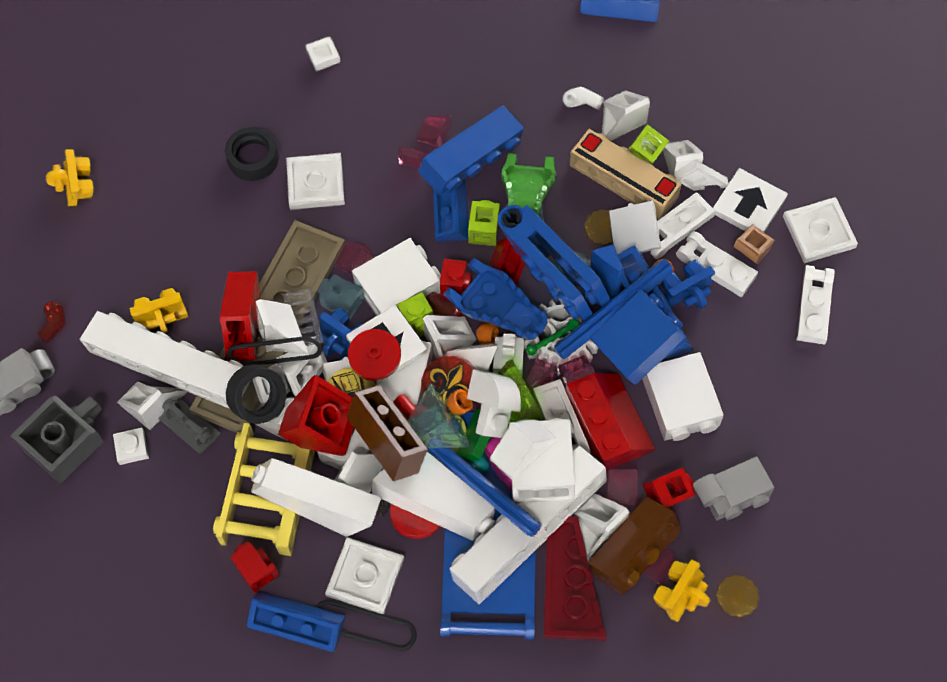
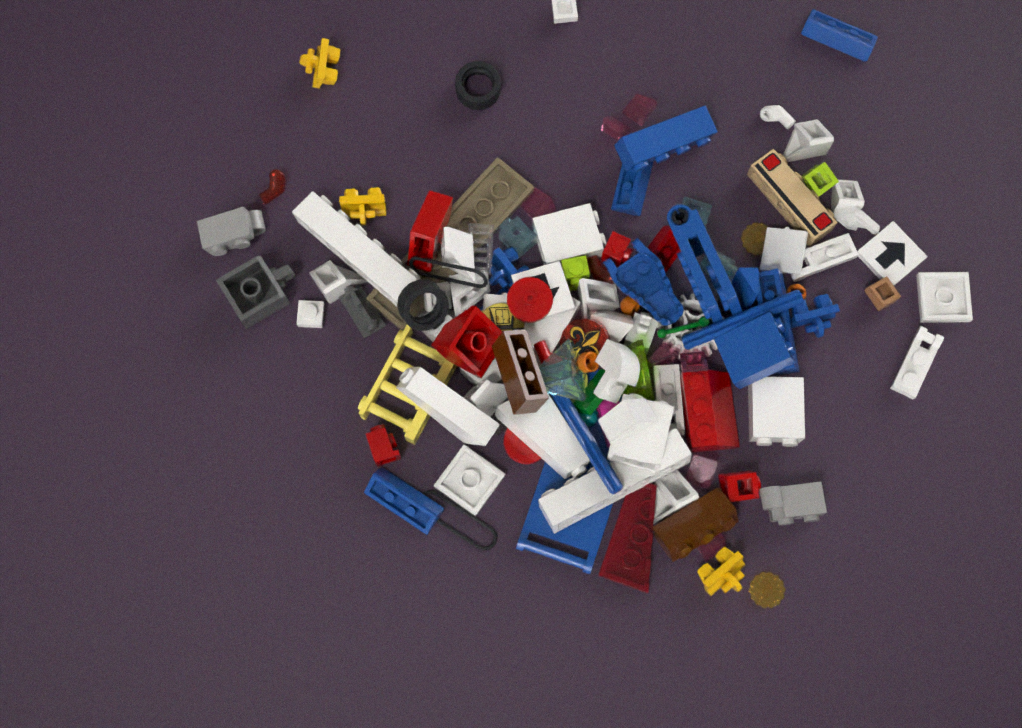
camera: 15 degrees right, 10 degrees up
(315, 181) = (525, 125): white tile -> none
(483, 223) = (653, 215): lime brick -> none
(526, 183) = (704, 183): bright green animal -> none
(728, 270) = (852, 309): white plate -> none

